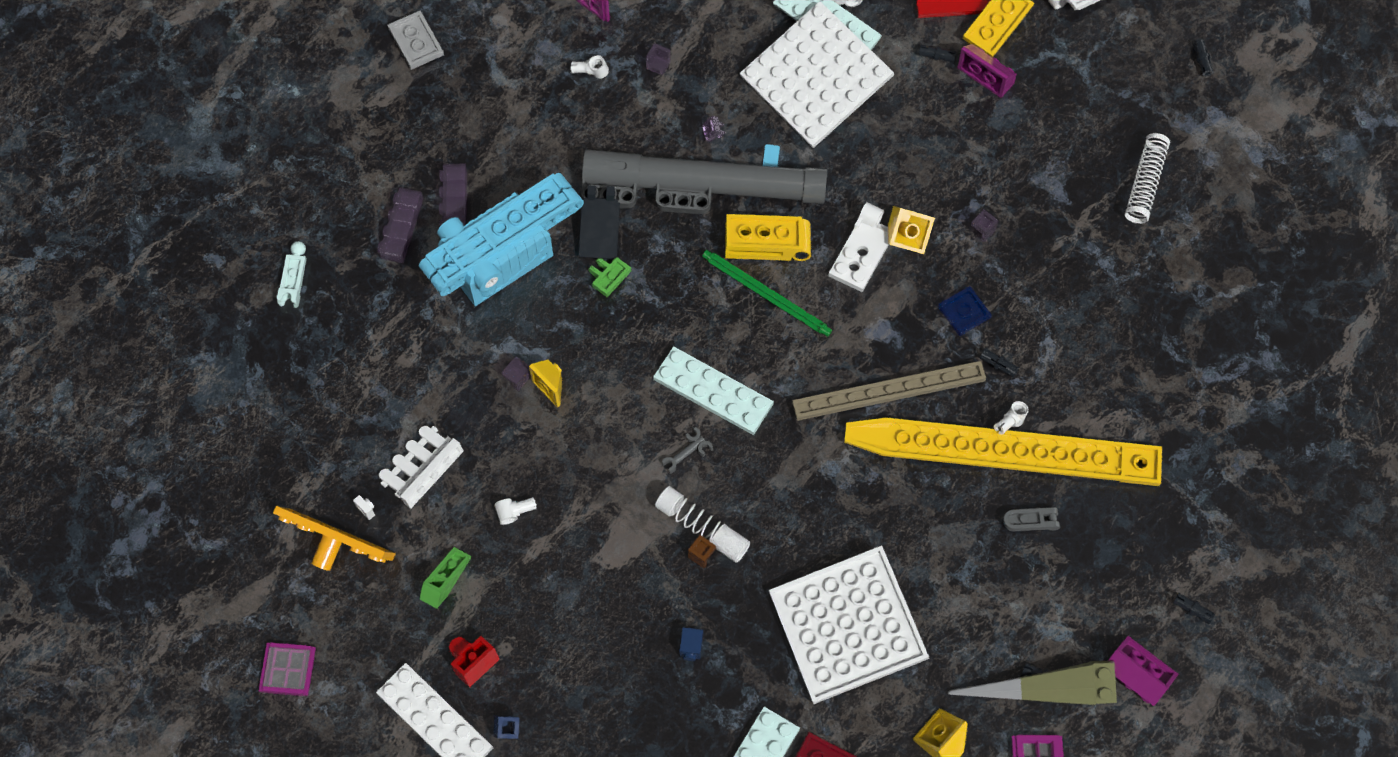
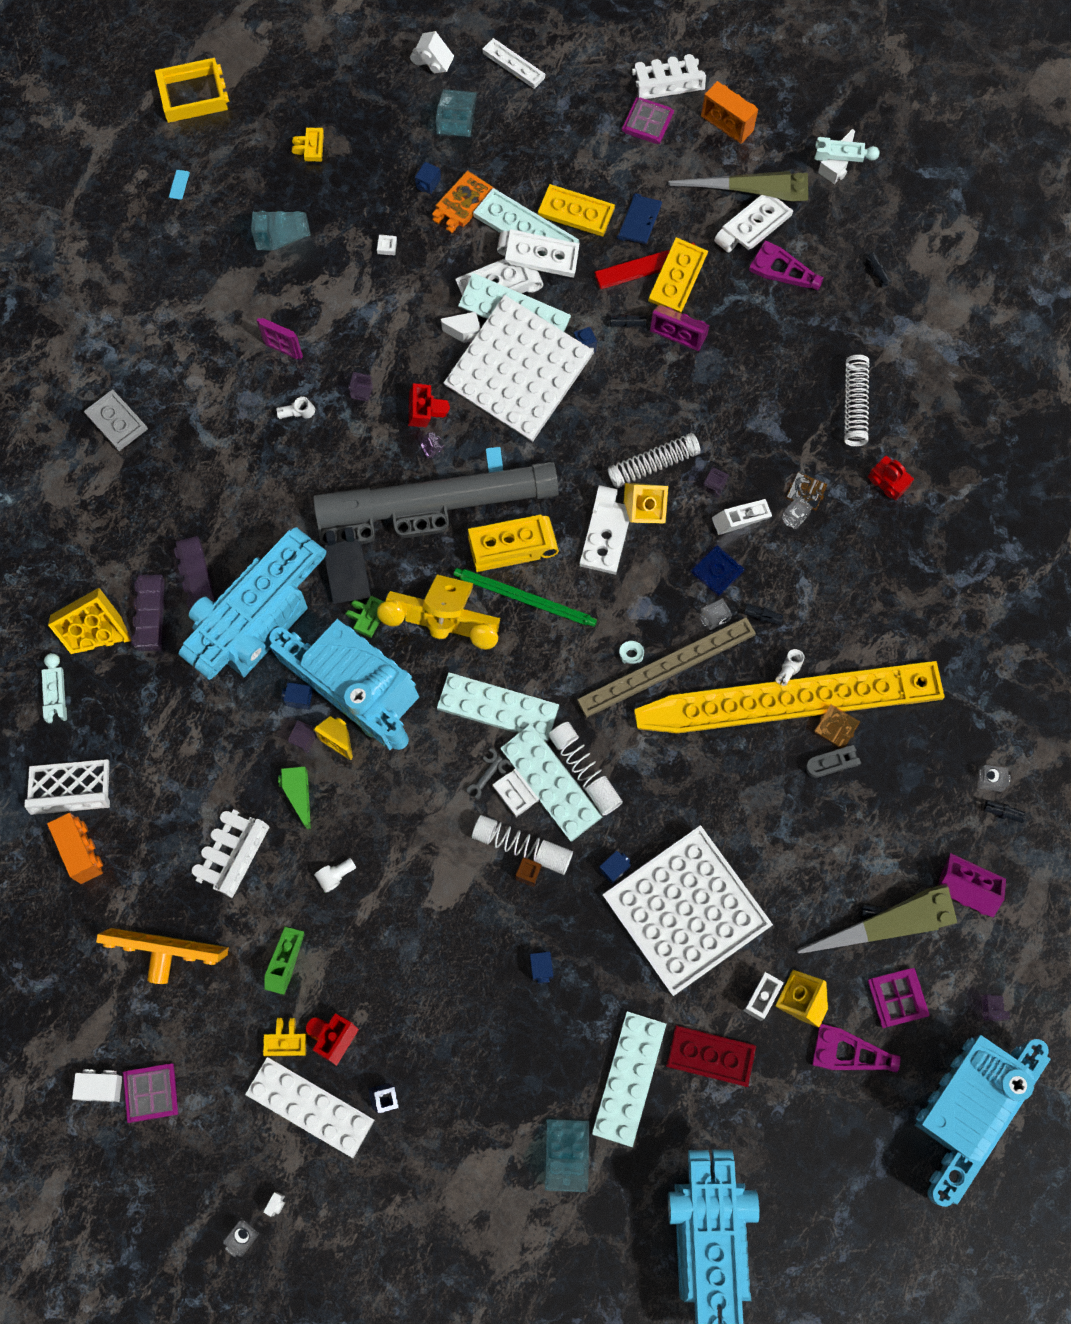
camera: 15 degrees left, 5 degrees up
(239, 650) = (97, 1087): none -> white brick
(276, 382) = (67, 802): none -> white fence
(276, 424) = (76, 848): none -> orange brick
(341, 222) = (89, 623): none -> yellow wedge
(365, 507) = (186, 908): white plate -> none
(426, 655) = (285, 1044): none -> yellow hinge
(498, 418) = (295, 785): none -> bright green slope
(522, 334) = (297, 696): none -> dark blue brick
(578, 328) = (352, 678): none -> medium azure piece
(685, 275) = (443, 601): none -> yellow piece
(709, 474) = (515, 792): none -> white plate
(714, 90) = (424, 406): none -> red brick
(746, 473) = (551, 782): none -> light aqua plate
(771, 23) = (462, 327): none -> white slope
(788, 567) = (615, 867): none -> dark blue brick
(791, 490) = (600, 790): none -> white piece
(858, 362) = (631, 645): none -> light aqua piece
(892, 60) = (586, 337): none -> dark blue brick
(901, 724) = (763, 996): none -> white brick
(951, 351) = (715, 614): none -> clear brick
(970, 189) = (616, 476): none -> white piece
(1001, 263) = (741, 516): none -> white slope
(1044, 486) = (837, 726): none -> clear orange piece
(1058, 273) = (796, 513): none -> clear brick
(1074, 255) = (807, 489): none -> piece
(1093, 21) = (769, 253): none -> magenta plate
(1162, 260) = (891, 477): none -> red brick
(1191, 573) = (994, 778): none -> clear brick

